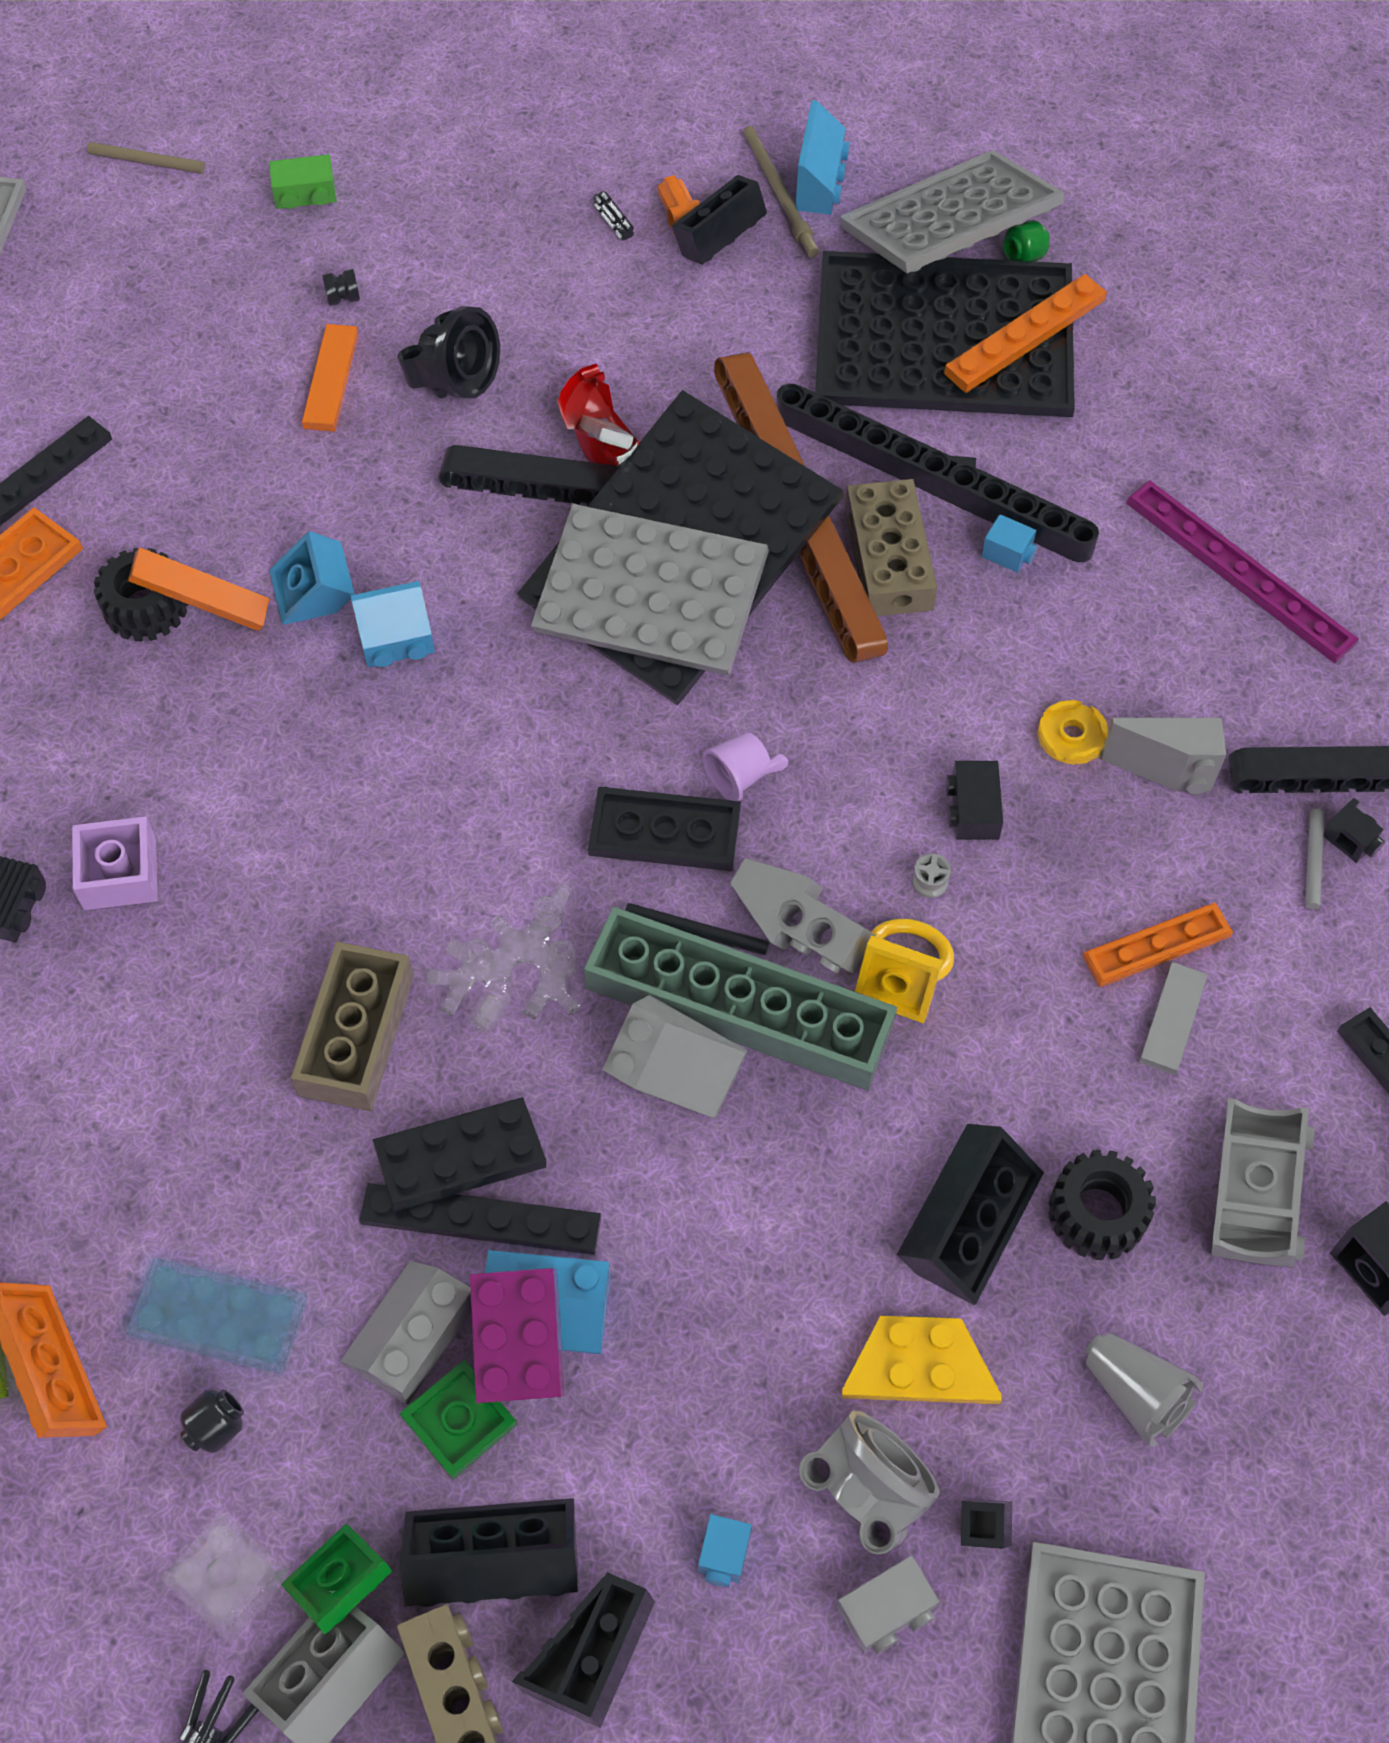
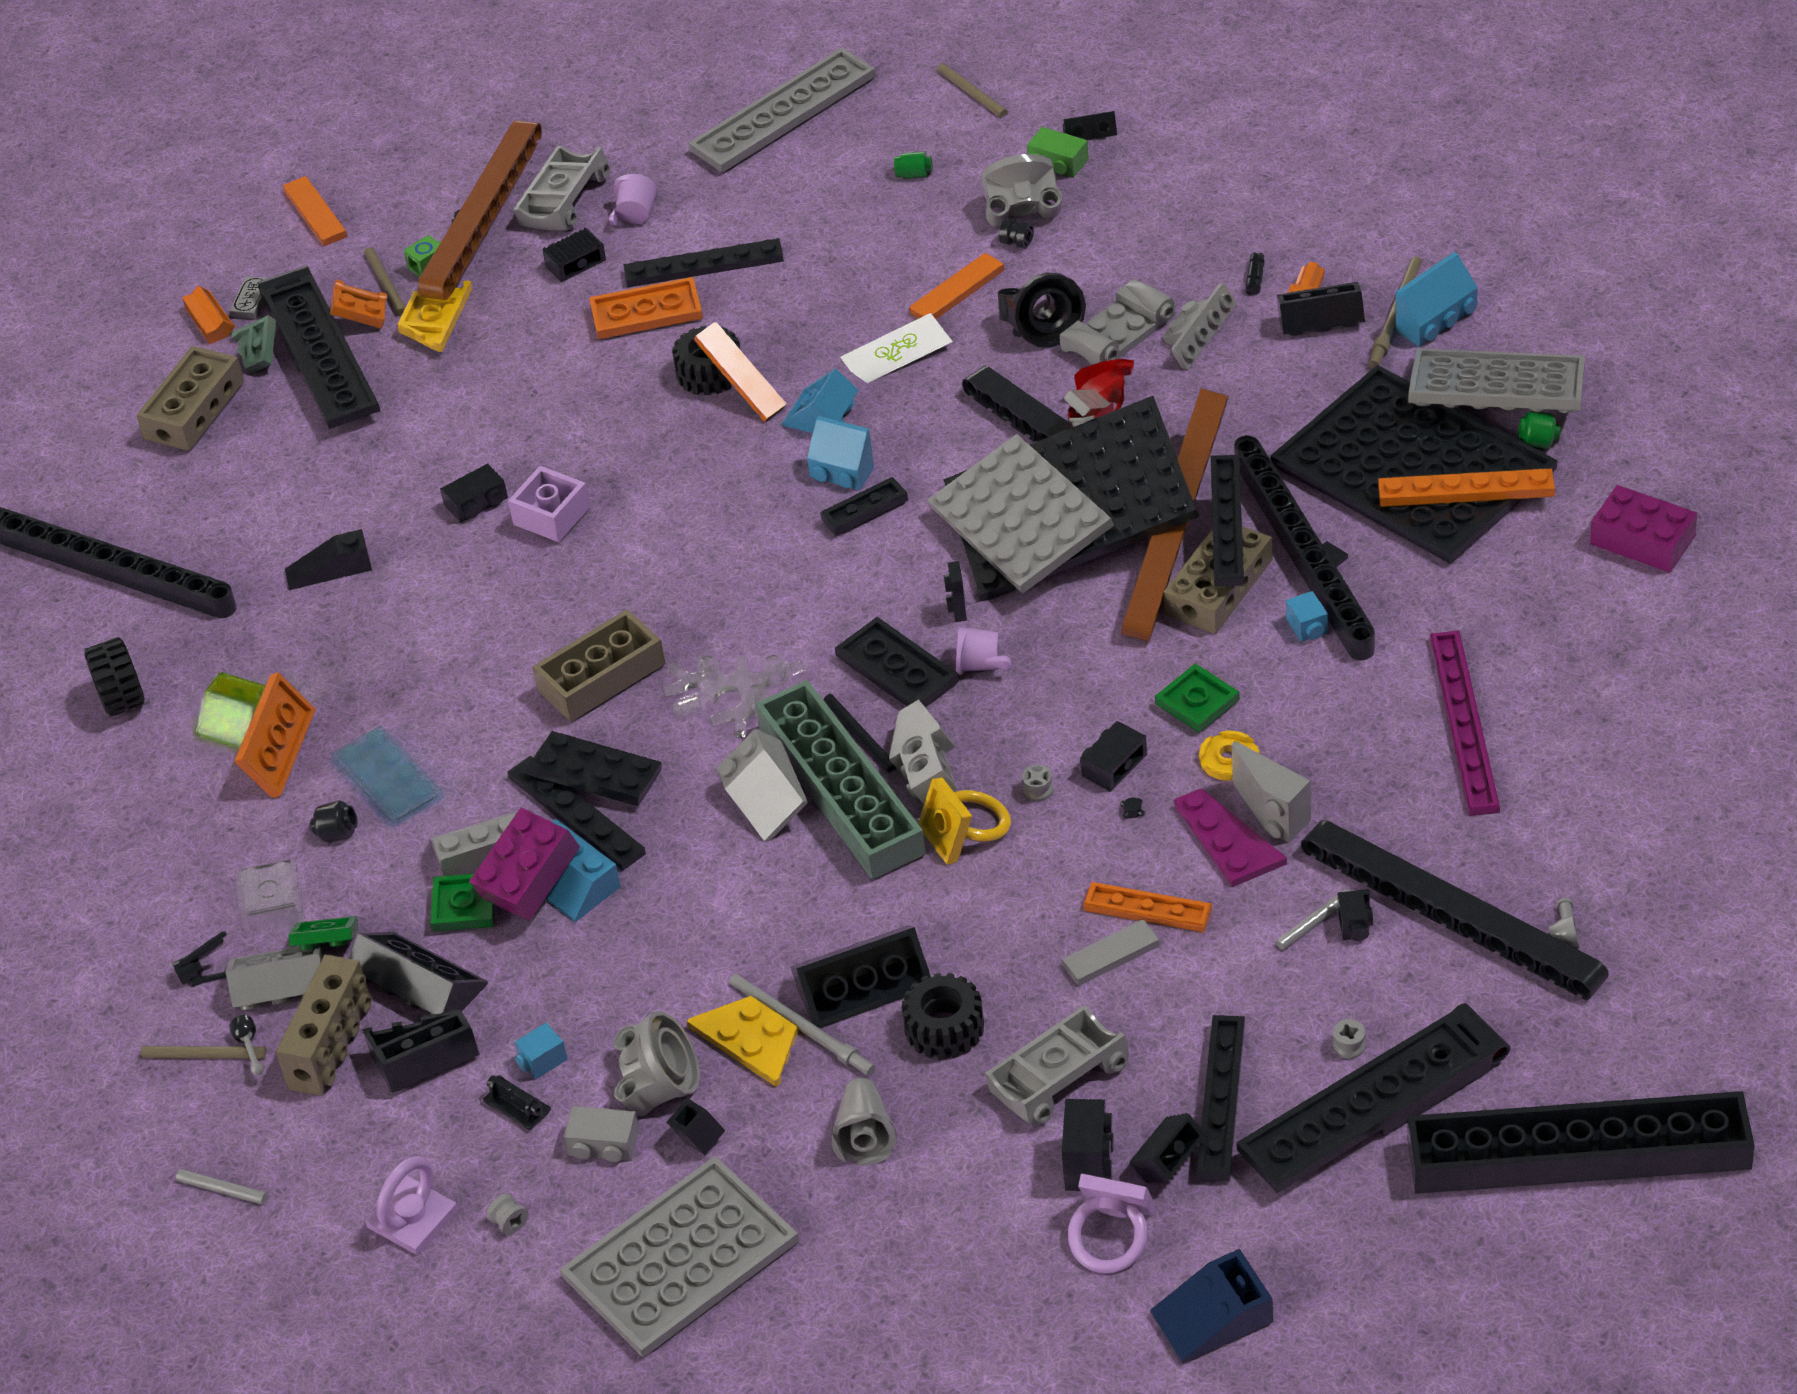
camera: 45 degrees right, 15 degrees down
(161, 265) = (913, 165): none -> green brick
(310, 139) = (1091, 126): none -> black hinge
(310, 238) = (1020, 188): none -> light grey piece
(329, 475) = (896, 349): none -> white sticker
(462, 669) = (864, 506): none -> black plate
(536, 333) = (1120, 326): none -> light grey piece
(609, 295) = (1198, 324): none -> light grey bracket
(663, 712) = (954, 584): none -> black plate
(753, 1634) = (515, 1102): none -> black hinge
(870, 485) = (1227, 520): none -> black plate
(990, 689) = (1197, 697): none -> green plate
(1038, 1314) = (845, 1052): none -> light grey bar
(1040, 845) = (1132, 808): none -> black piece
(1163, 824) = (1228, 840): none -> magenta wing
(1209, 291) = (1643, 528): none -> magenta brick

